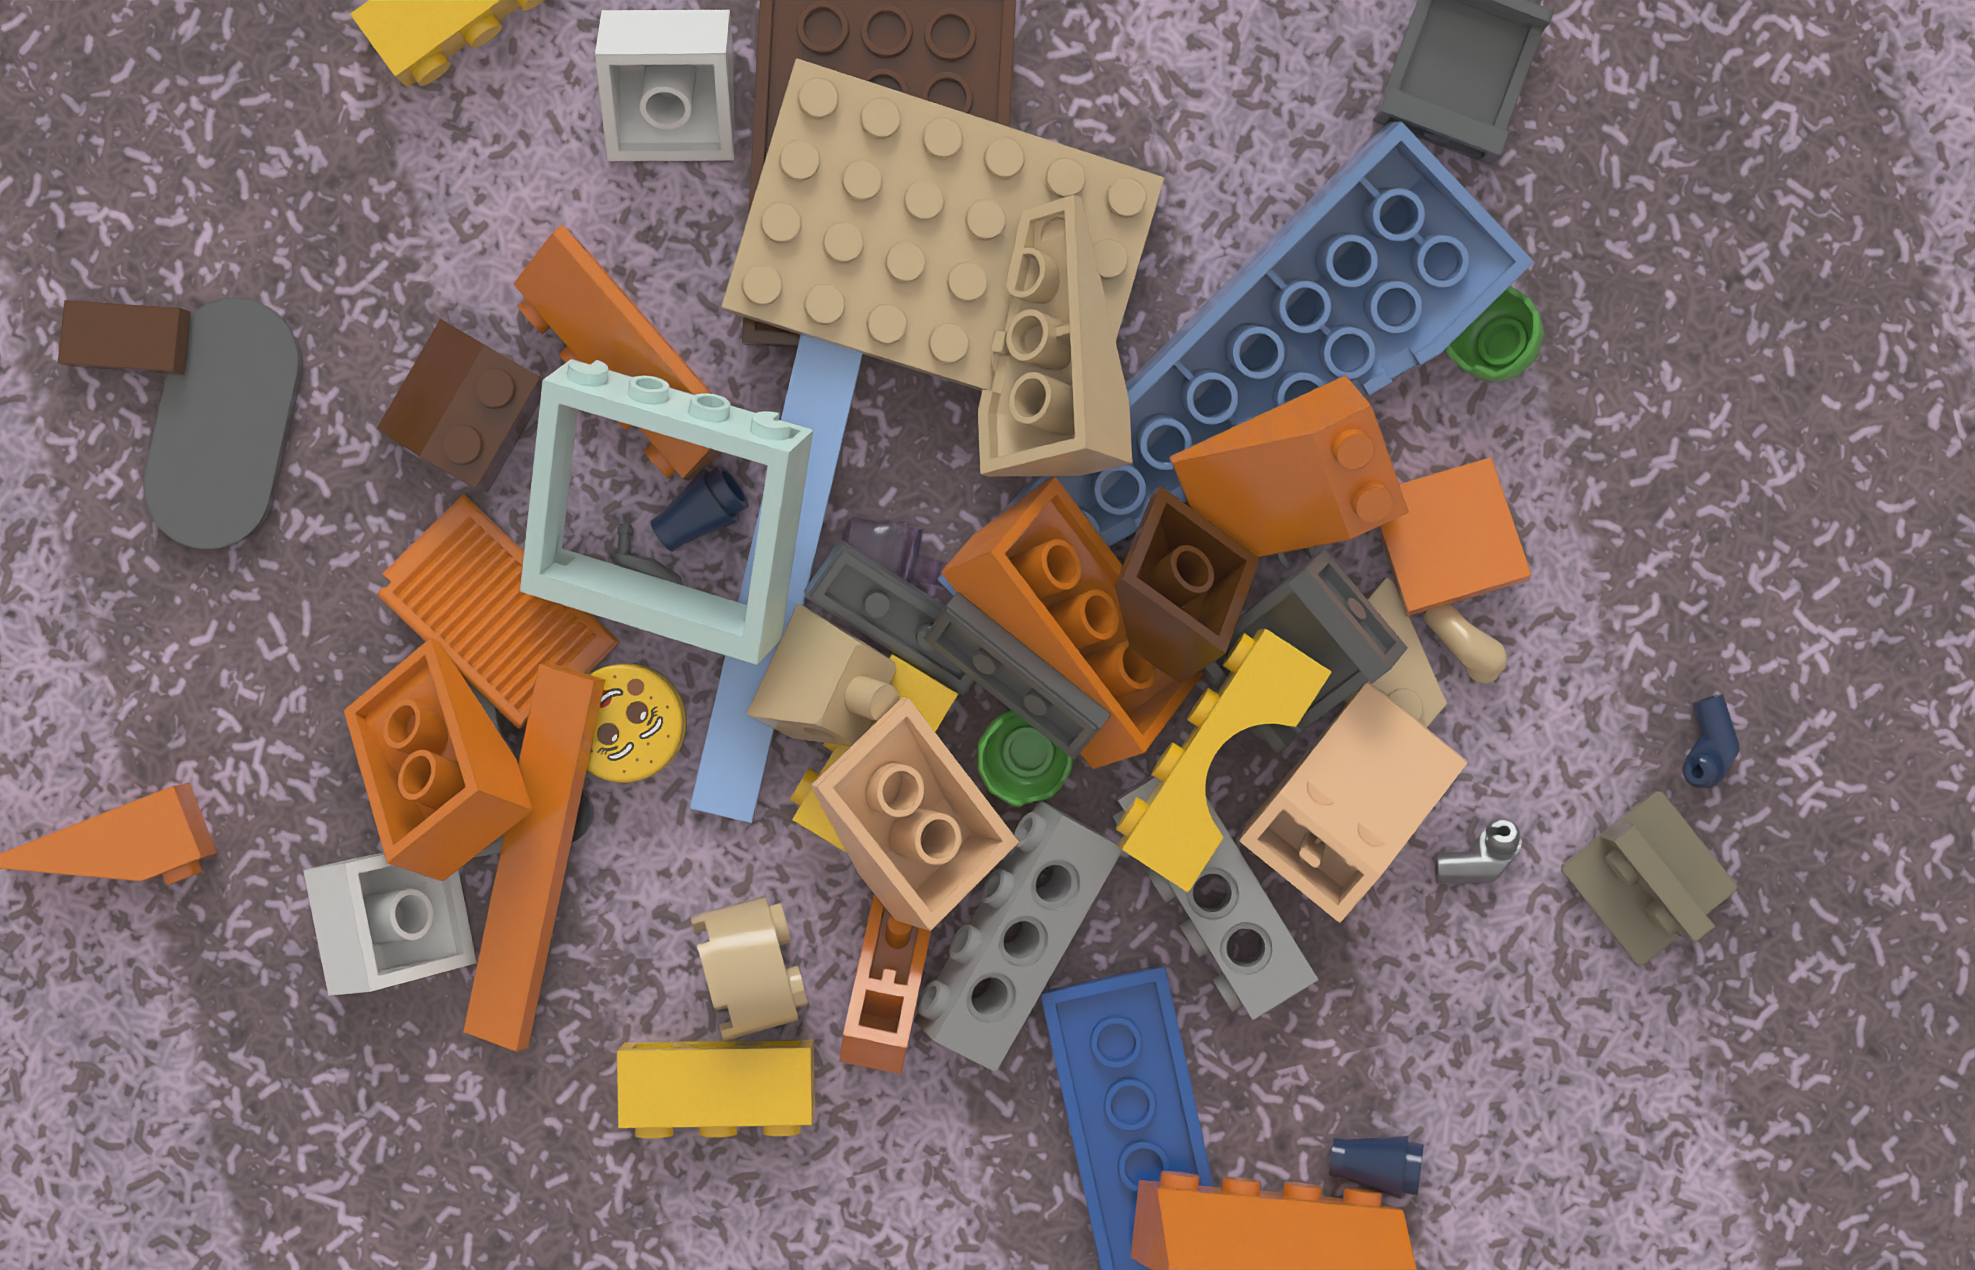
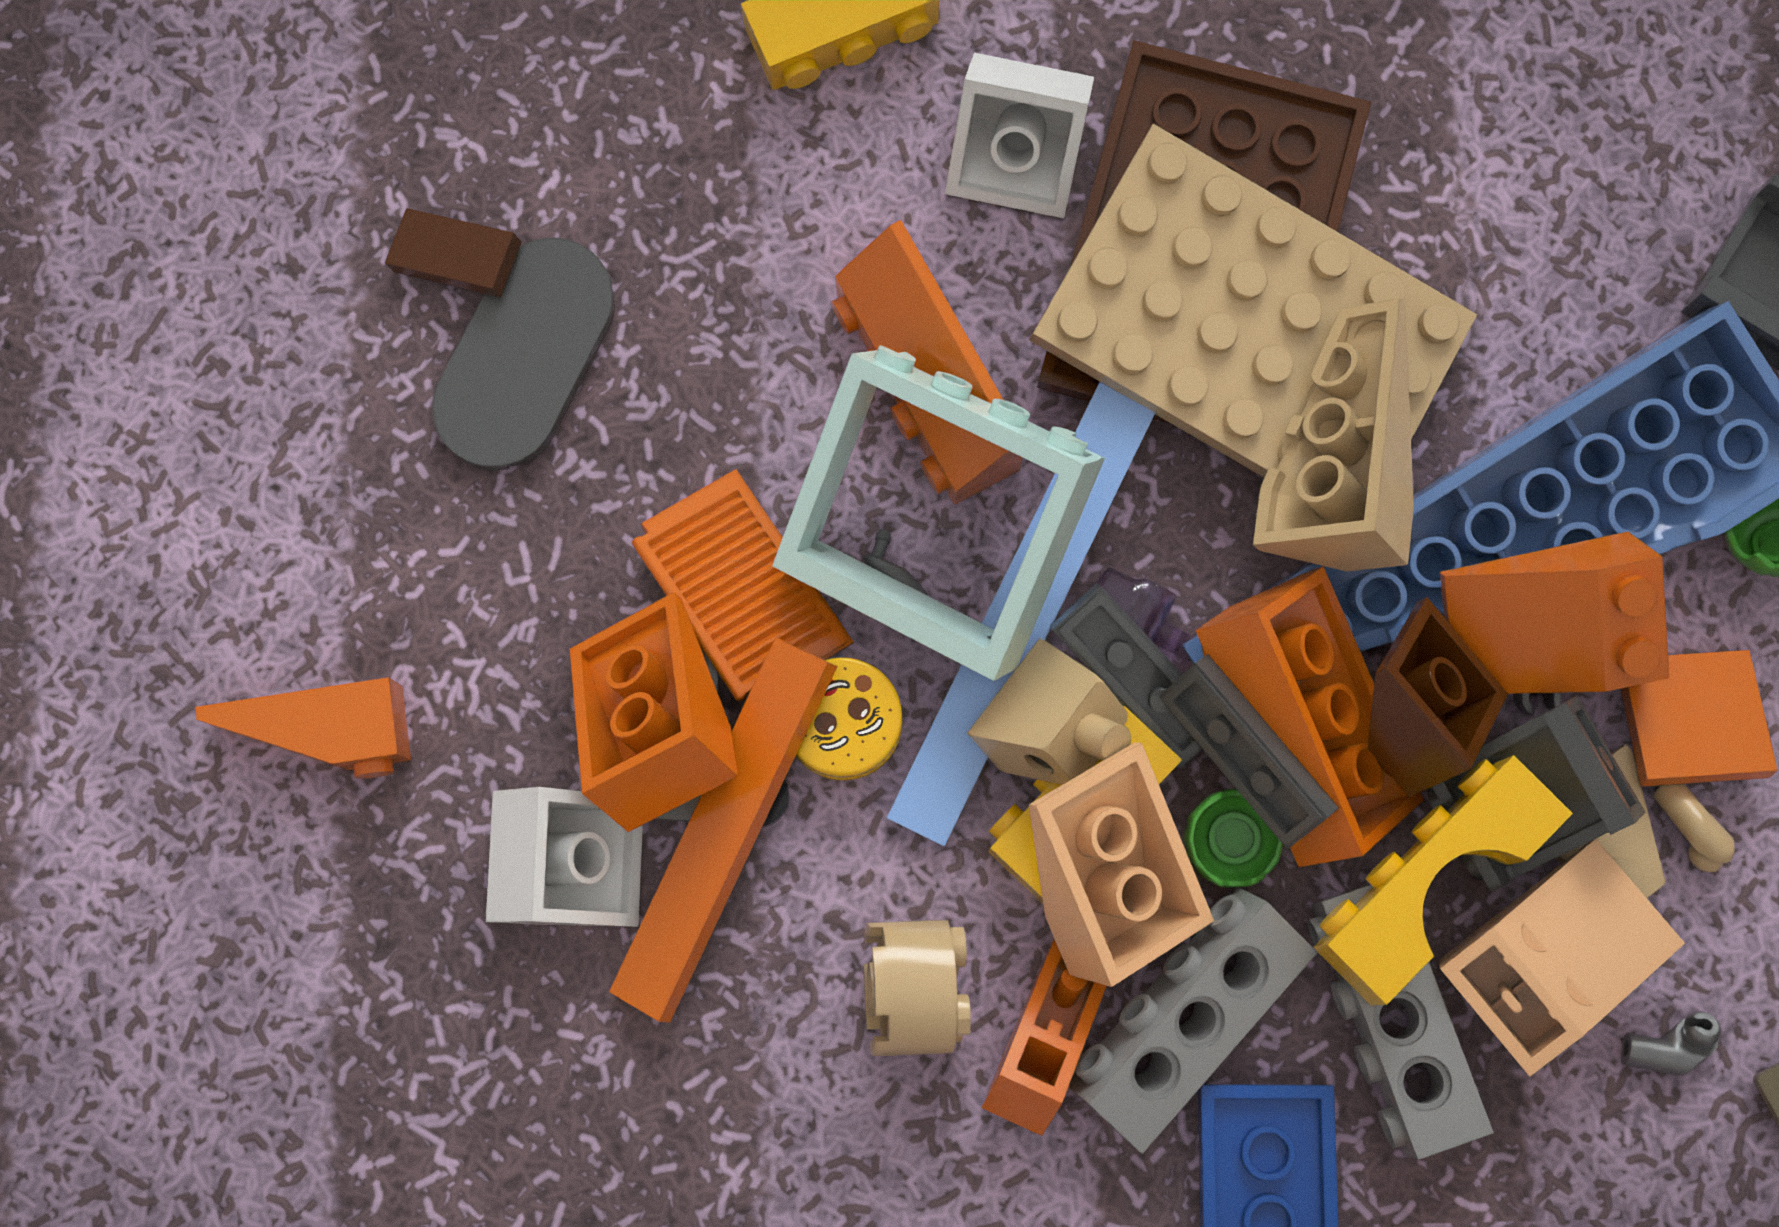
camera: 15 degrees right, 10 degrees down
(463, 407) = (759, 384): reddish brown slope -> none
(701, 508) = (962, 530): dark blue cone -> none
(716, 1086) = (851, 1106): yellow brick -> none

